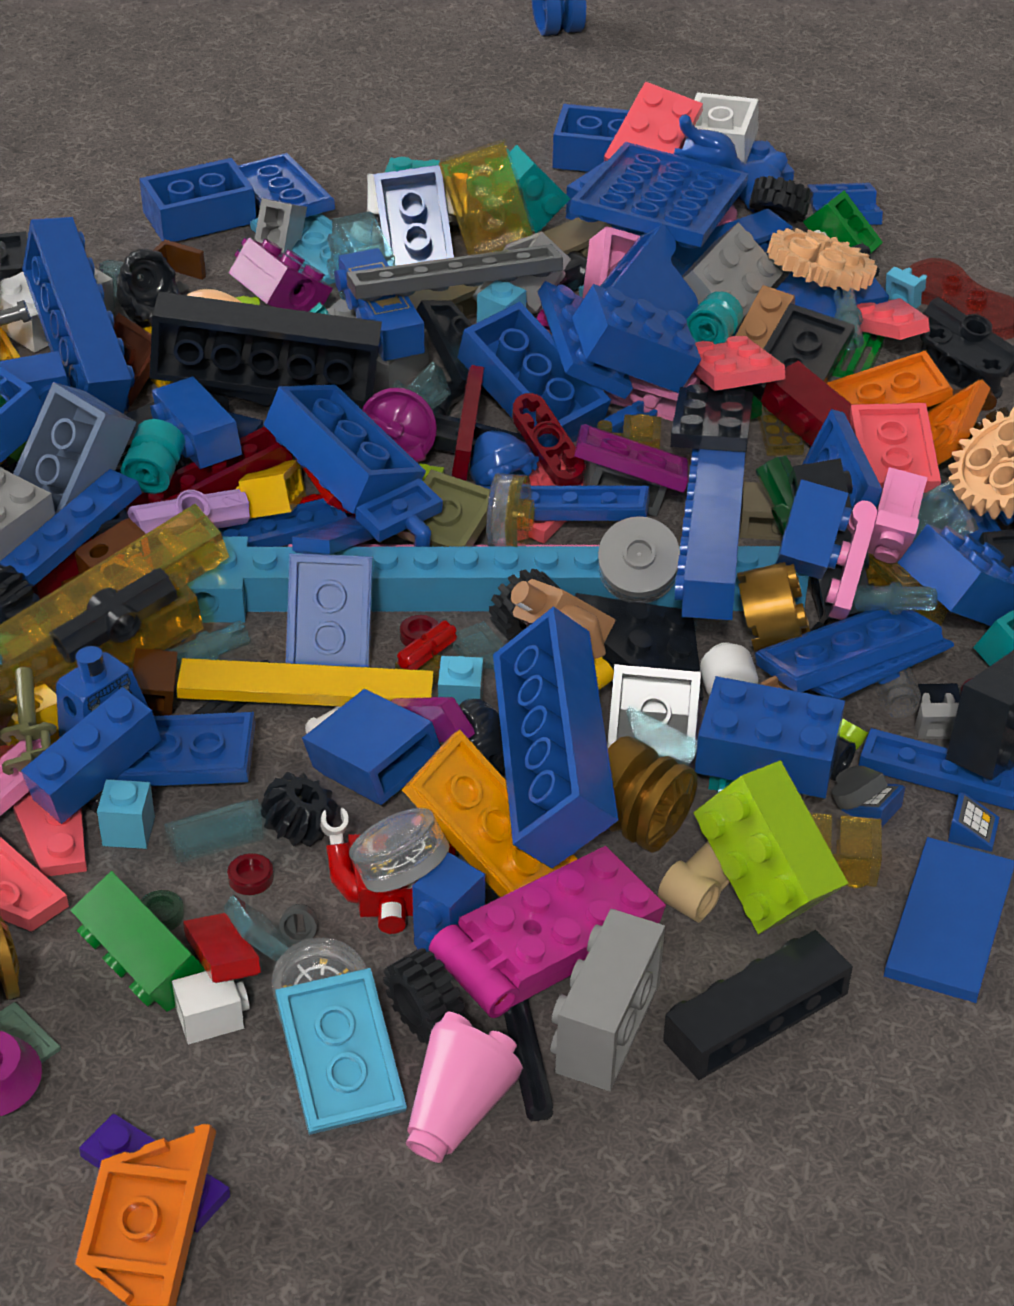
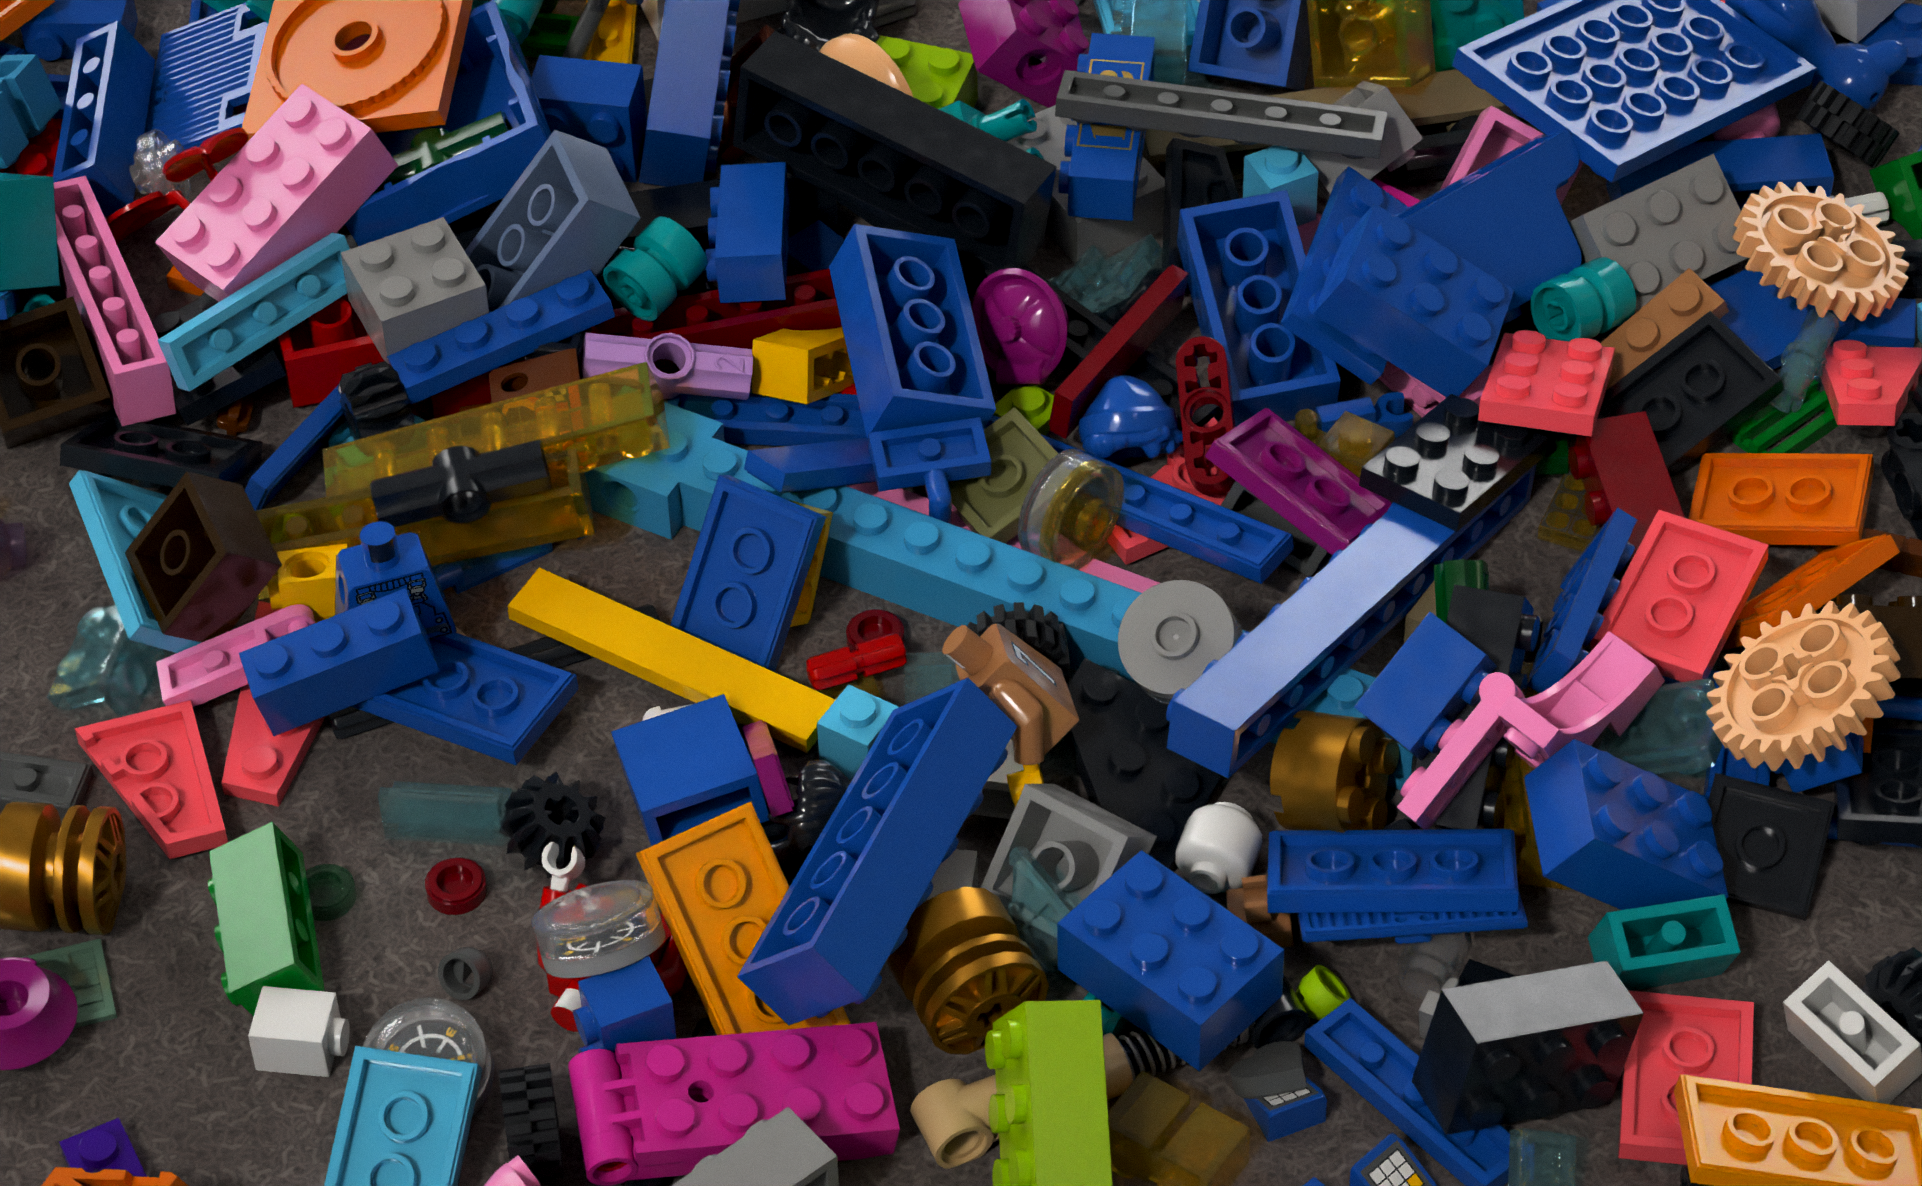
camera: 30 degrees right, 5 degrees up
(27, 727) = (285, 596): olive piece -> none
(126, 814) = (353, 751): medium azure brick -> none
(156, 678) = (488, 584): reddish brown brick -> none
(212, 644) = (598, 558): clear light blue pin -> none
(221, 948) = (343, 967): red tile -> none
(255, 928) = (398, 959): clear light blue tile -> none
(895, 598) = (1488, 827): clear light blue axle -> none

